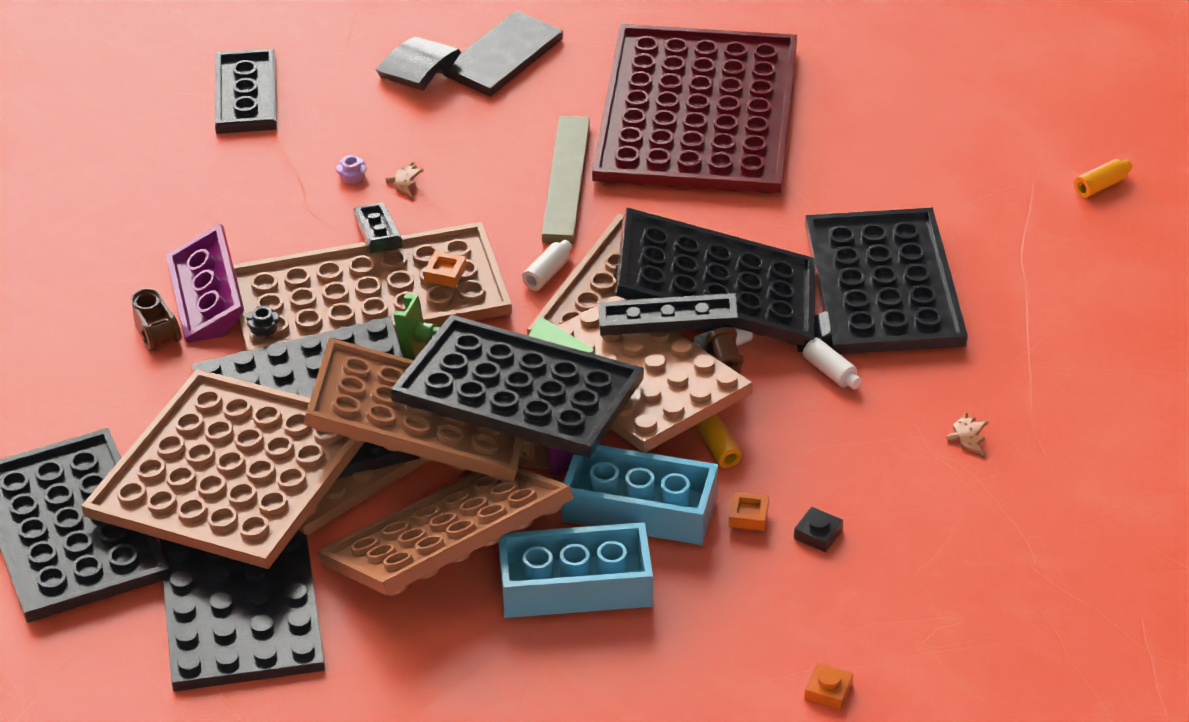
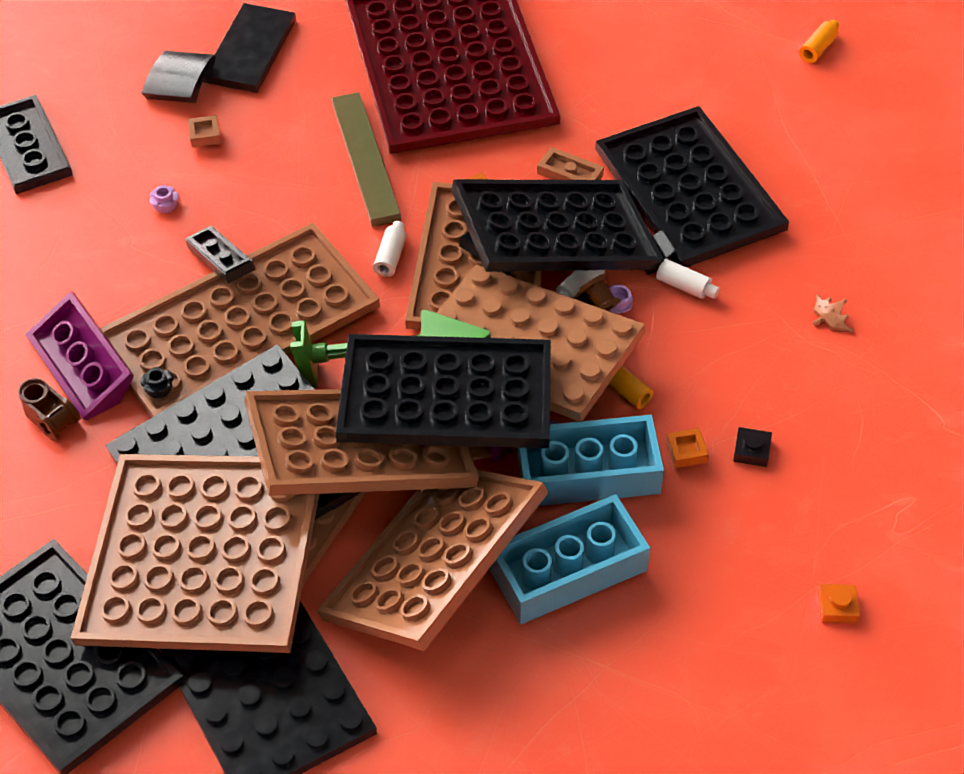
camera: 20 degrees left, 10 degrees up
(404, 178) = (217, 193): nougat piece -> none
(418, 117) = (204, 131): none -> nougat plate
(445, 269) = (306, 281): orange plate -> none
(667, 314) = (540, 277): black plate -> none
(754, 364) = (625, 297): none -> lavender plate
(761, 229) = (564, 166): none -> nougat plate

